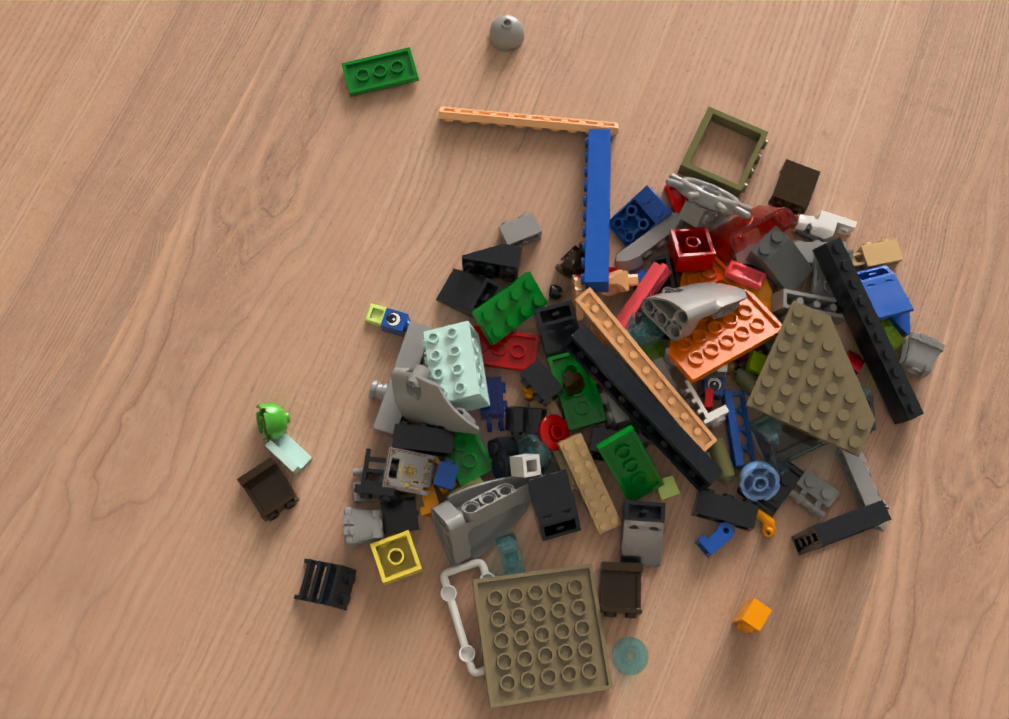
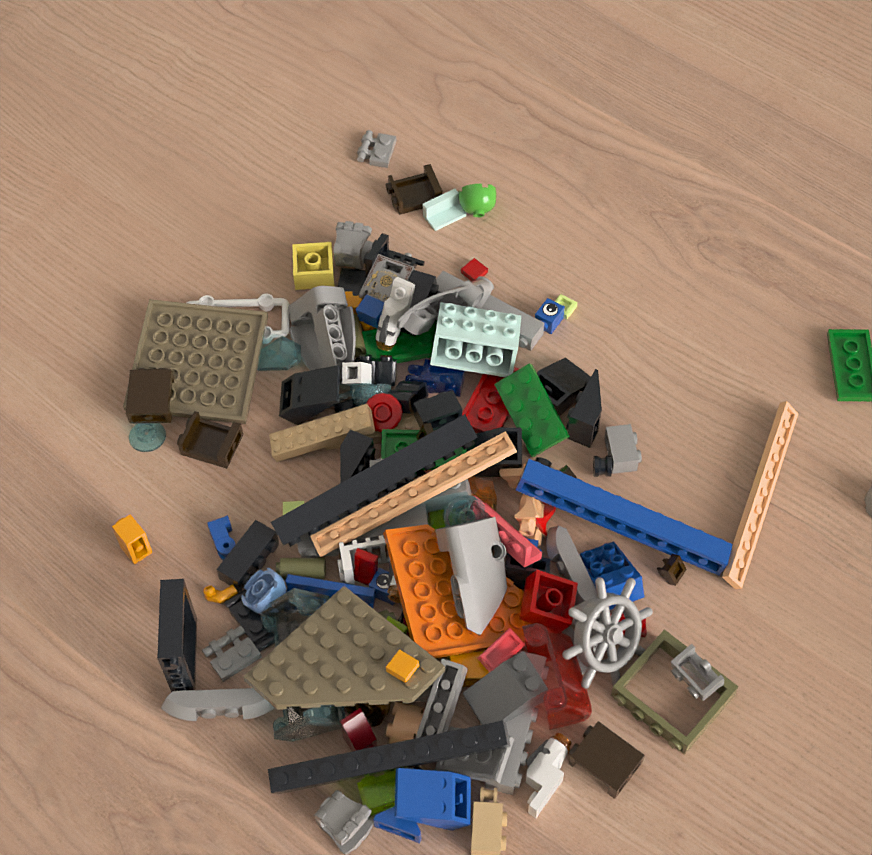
camera: 110 degrees right, 15 degrees down
(217, 542) = (382, 150): none -> light grey plate
(335, 587) = (309, 214): black plate -> none
(355, 405) = (474, 269): none -> red tile
(452, 447) = (393, 309): none -> white plate
(541, 243) = (602, 466): none -> black wheel
(601, 660) = (149, 396): none -> dark brown panel
(621, 172) = (672, 569): none -> dark brown tile
(630, 464) = (323, 464): green plate -> none
(642, 532) = (258, 471): black slope -> none
(714, 131) = (696, 673): none -> light grey window
(810, 328) = (402, 666): none -> light orange tile

